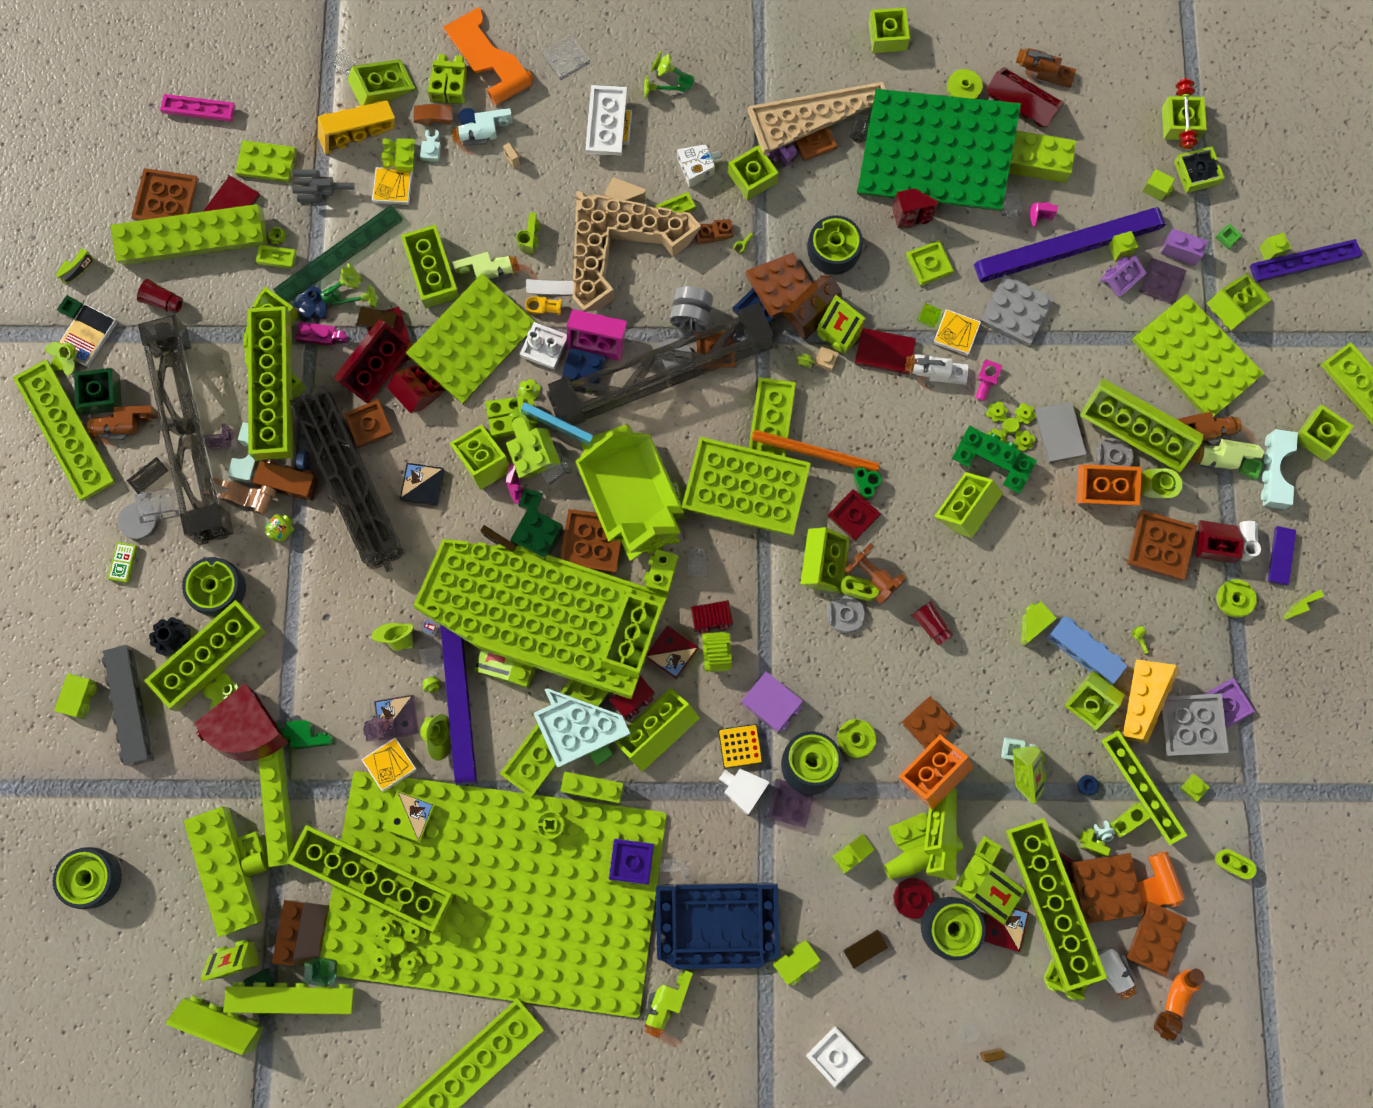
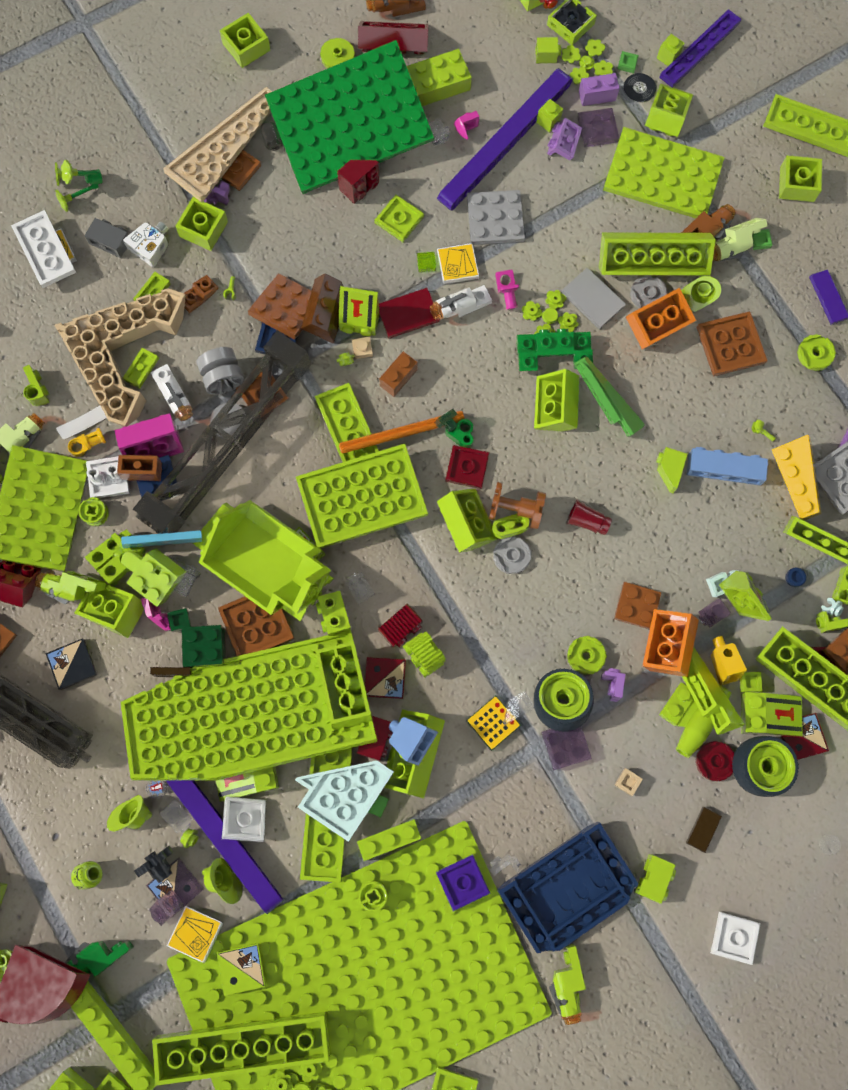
camera: 35 degrees left, 0 degrees up
(332, 663) = (86, 875): none -> lime head
(392, 689) = (156, 865): none -> black plant
(457, 418) = (68, 586): none -> lime plate
(484, 696) = (244, 819): none -> white tile
(514, 368) = (93, 511): none -> lime wheel
(531, 392) = (121, 525): lime plant -> none
(574, 353) = (139, 467): none -> dark orange brick
(625, 191) = (97, 301): tan slope -> none
(626, 268) = (140, 368): none -> lime plate
(640, 305) = (172, 393): none -> white plate
(660, 715) = (411, 739): none -> medium blue torso
(665, 139) = (107, 237): none -> dark grey brick
(743, 788) = (519, 758): white torso -> none
(768, 745) = (517, 707): none -> clear tile
(772, 702) = (498, 668): medium lavender brick -> none
(824, 867) = (628, 782): none -> tan plate
(831, 257) = (311, 259): wheel -> none
(843, 399) = (398, 374): none -> dark orange brick
(852, 853) = (644, 755): lime slope -> none
(860, 464) = (447, 420): none -> clear green tile
(865, 777) = (616, 687): none -> medium lavender bracket
(976, 819) = (727, 661): none -> yellow torso
(992, 770) = (713, 613): none -> clear purple bracket
(1016, 528) = (608, 398): none -> bright green wedge
(1094, 700) = (758, 503): lime slope -> none
(1189, 216) = (586, 63): none -> lime plant
(1219, 542) = (775, 314): dark red slope -> none
(1225, 265) = (639, 87): none -> black sticker
(1249, 532) = (797, 300): white piece -> none
(1276, 491) = (792, 245): light aqua arch -> none

